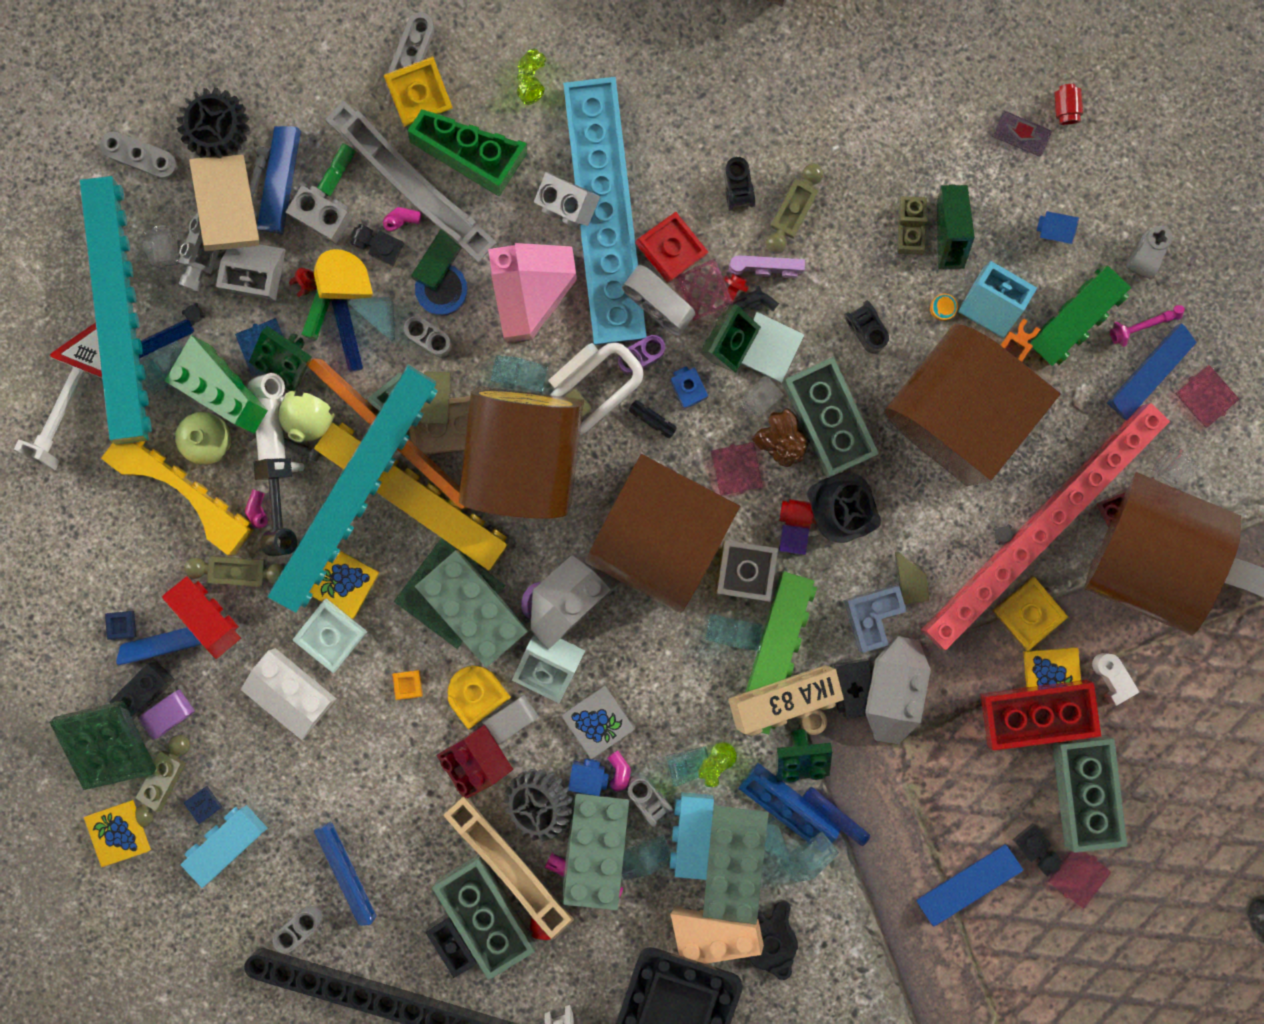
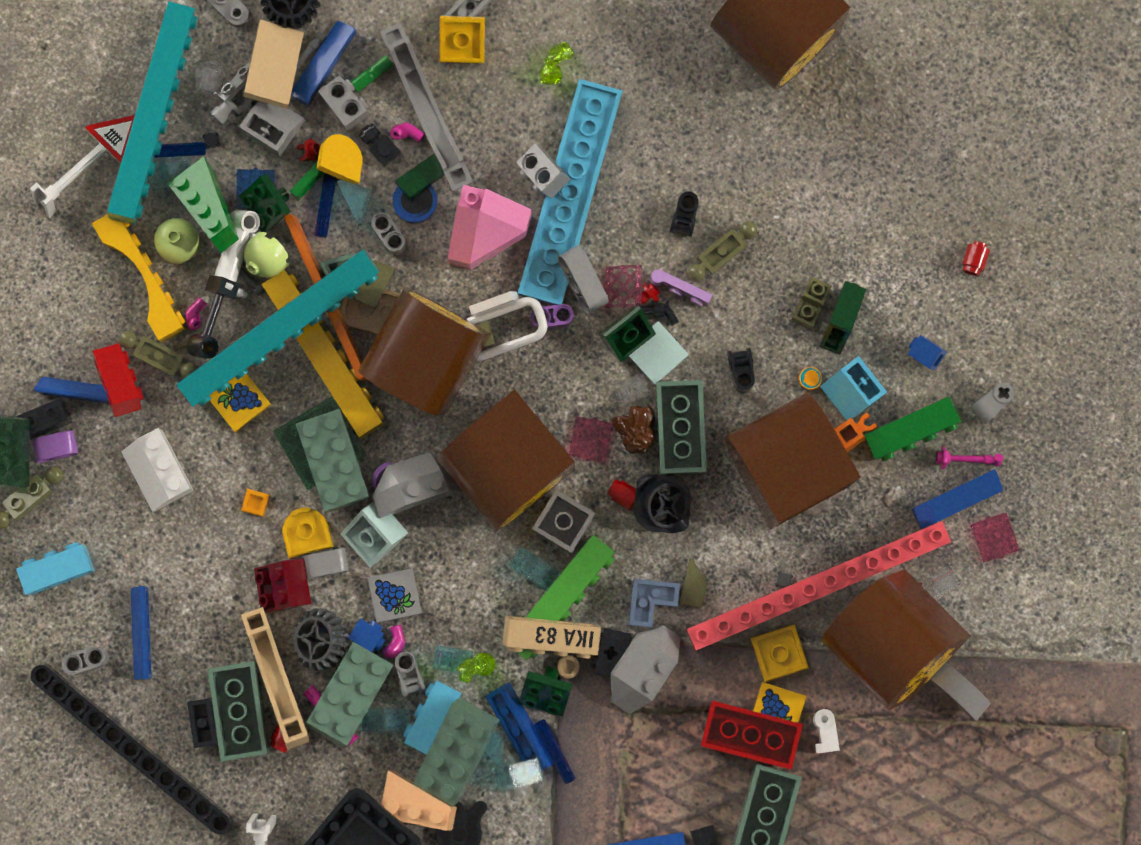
camera: 30 degrees right, 5 degrees down
(120, 625) = (48, 361): dark blue tile -> none
(202, 804) = (52, 530): dark blue tile -> none
(329, 635) = (210, 437): light aqua tile -> none
(472, 152) = (486, 106): green wedge -> none
(519, 373) = (448, 292): clear light blue slope -> none
(652, 419) = (539, 372): black axle -> none
(671, 247) = (611, 242): red tile -> none
(688, 387) = (578, 358): blue brick -> none
(794, 539) = (613, 514): dark purple tile -> none
(1022, 133) = (929, 266): tile -> none

